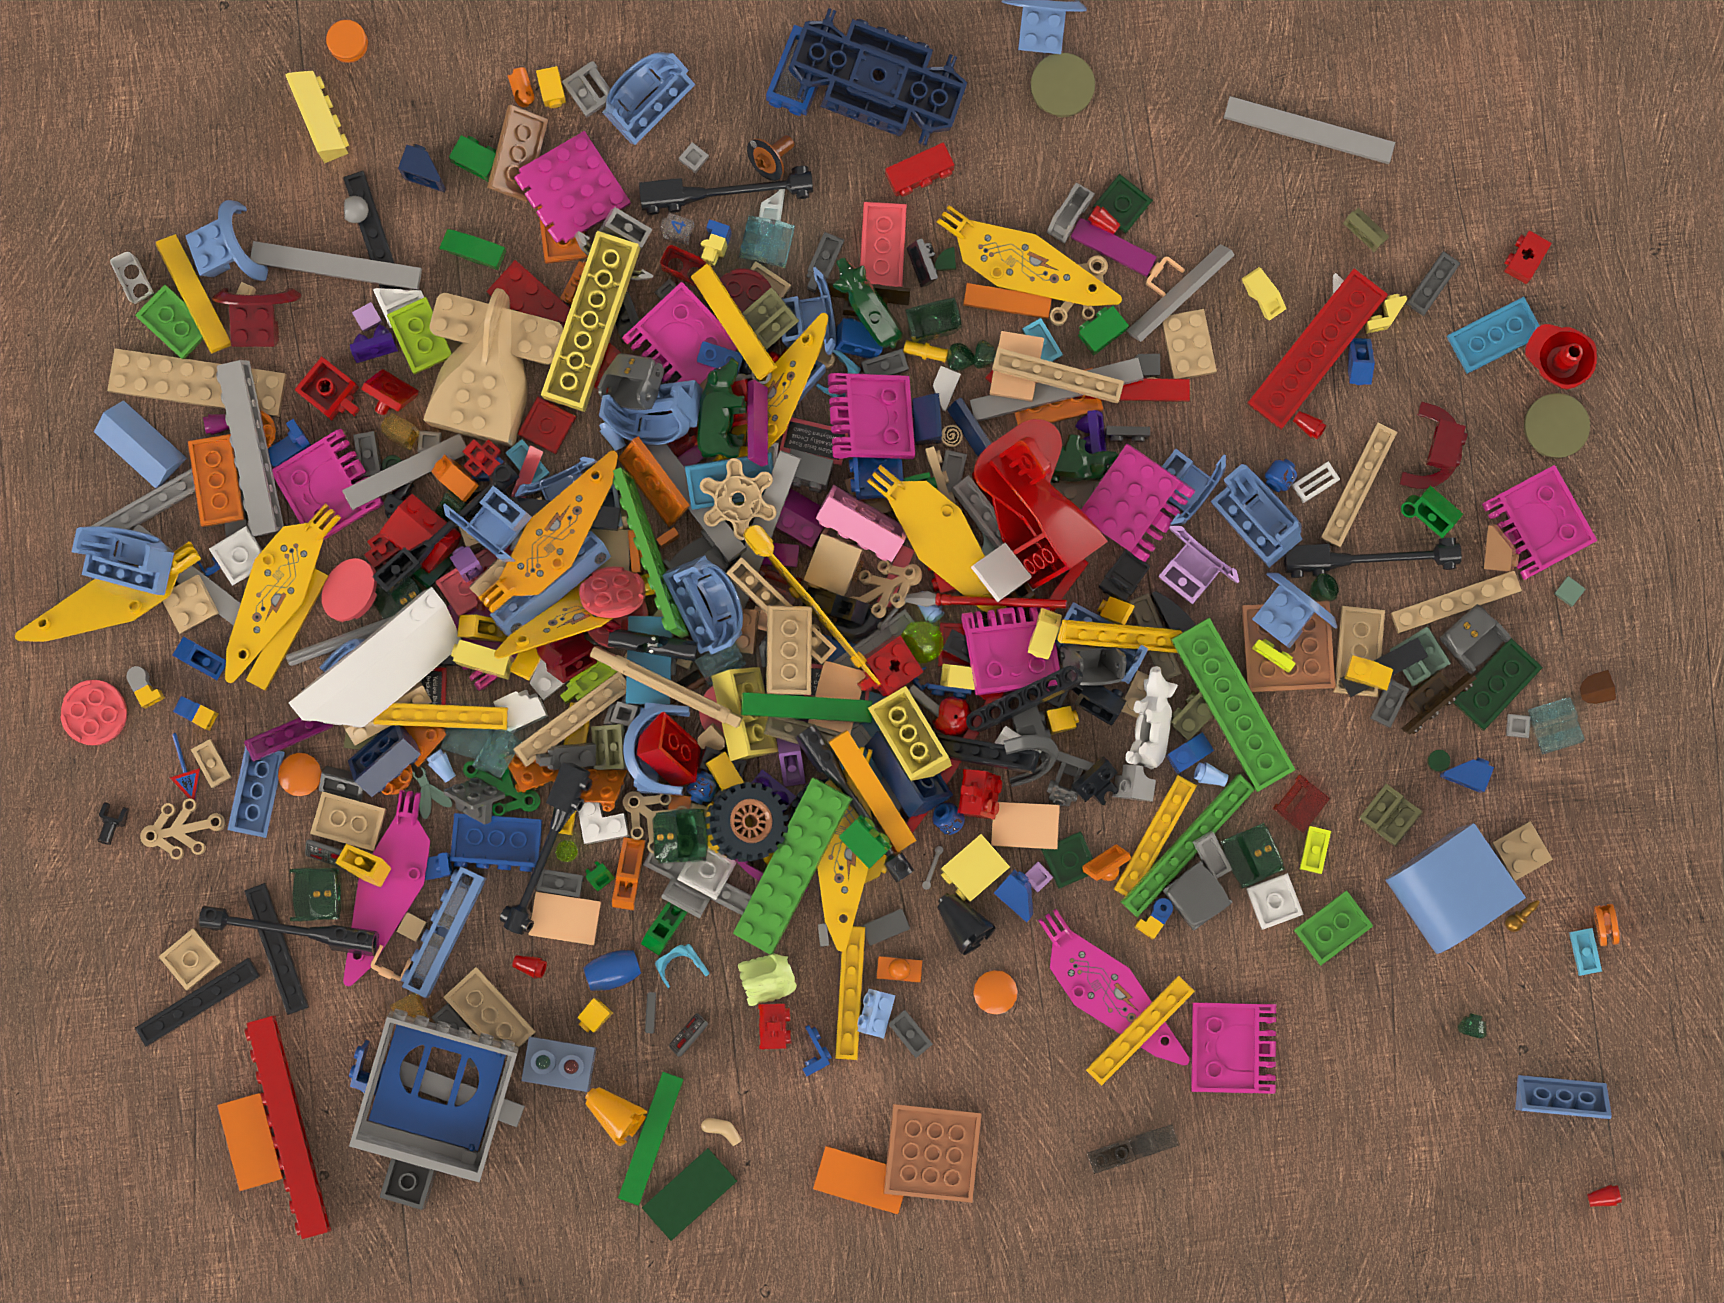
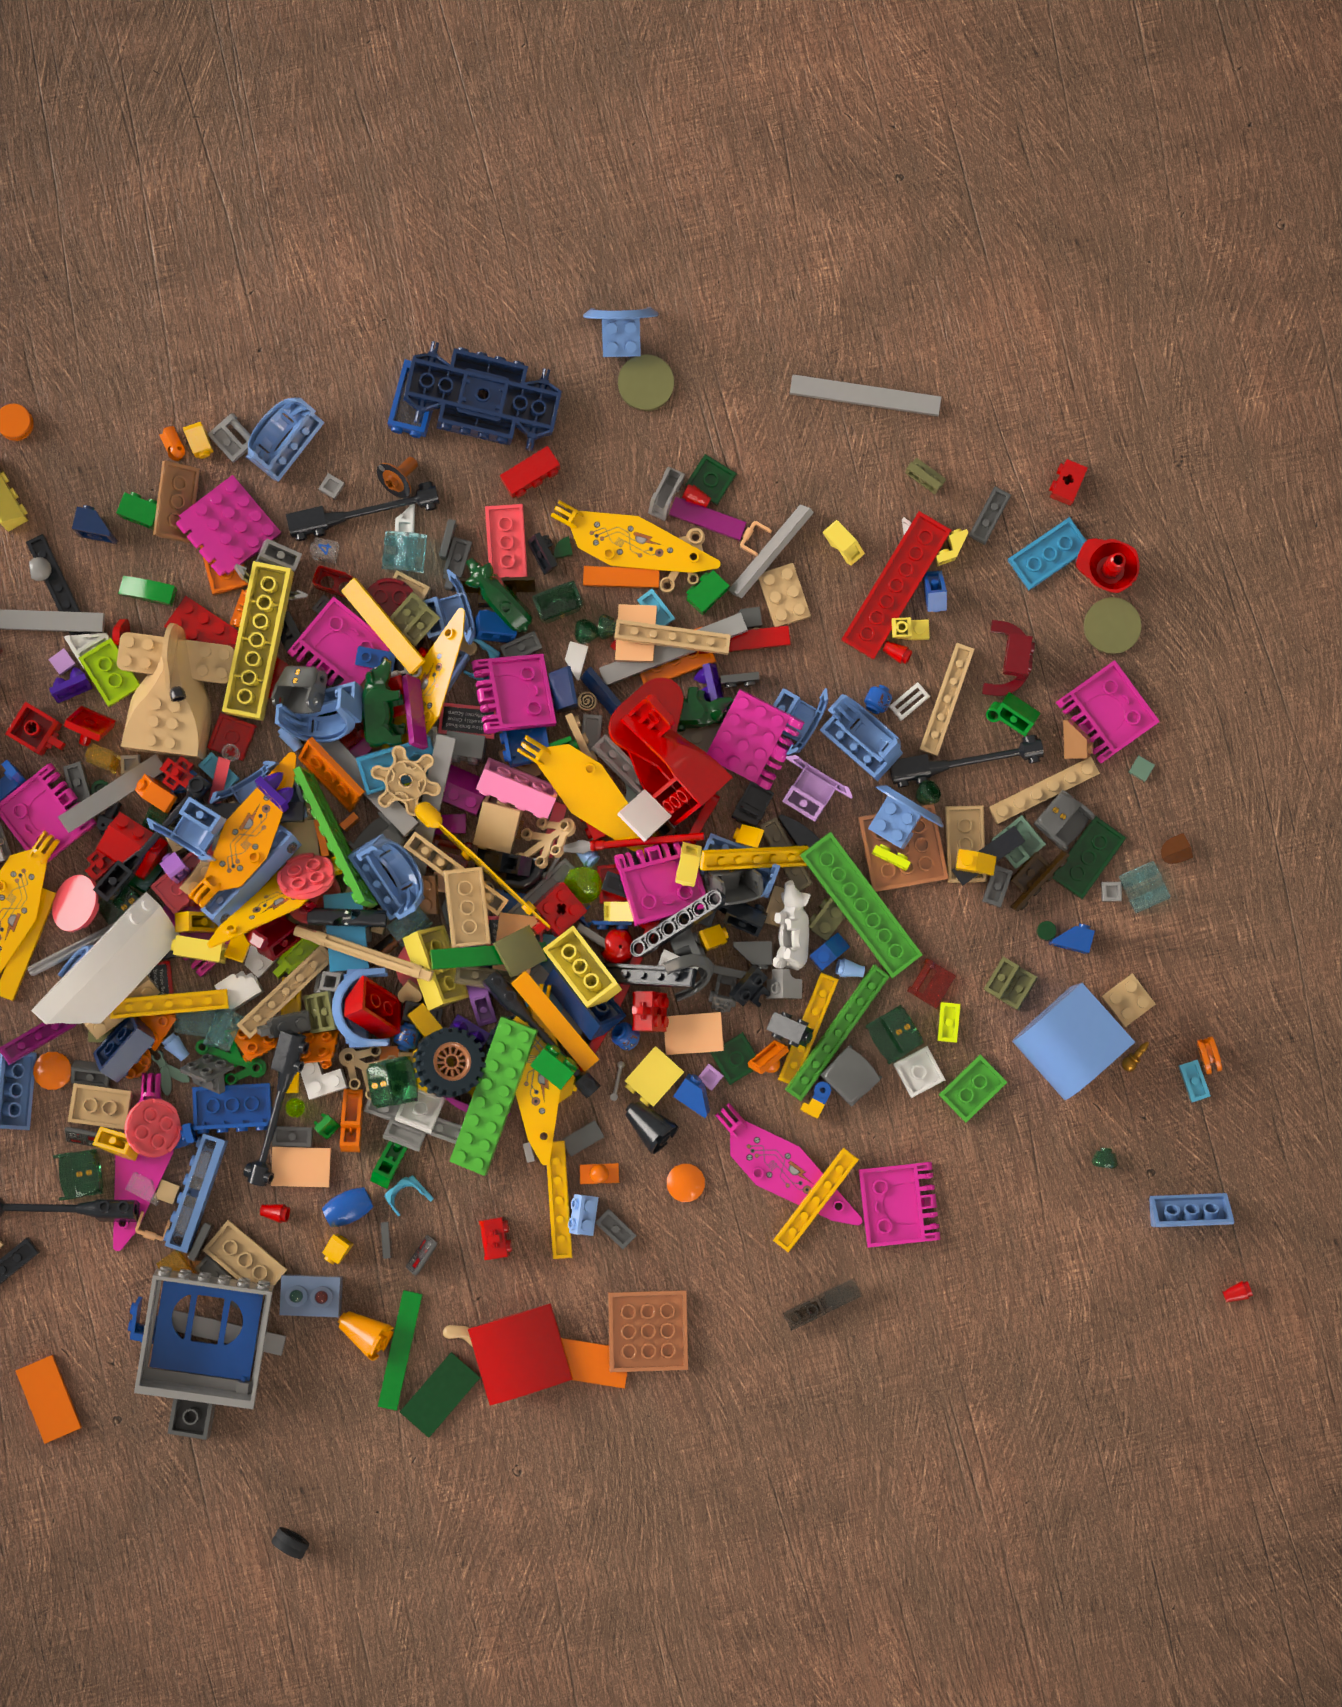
camera: 10 degrees left, 0 degrees up
(277, 950) = (51, 1228): black tile -> none
(288, 1127) = (80, 1382): red brick -> none
(385, 919) = (143, 1188): none -> clear tile
(405, 852) = (153, 1127): none -> coral tile
(438, 287) = (120, 628): none -> red tile
(442, 987) = (200, 1241): none -> dark grey tile
(494, 369) = (177, 694): none -> black hinge
(543, 436) = (236, 751): none -> clear bush
(582, 487) = (268, 788): none -> dark purple tile
(717, 243) = (361, 558): light yellow hips -> none
(767, 978) = (484, 1197): yellowish green piece -> none
(786, 1160) = (520, 1354): none -> red slope
(814, 1064) = (534, 1267): blue bracket -> none
(817, 233) = (447, 539): none -> dark grey tile
(842, 707) = (520, 951): none -> olive slope
(925, 351) = (555, 630): yellow pin -> none
(1107, 743) = (756, 953): none -> dark grey slope
(1141, 838) = (785, 1027): none -> brick
(1212, 854) = (859, 1038): light grey tile -> none
(1327, 401) = (910, 629): none -> light yellow slope

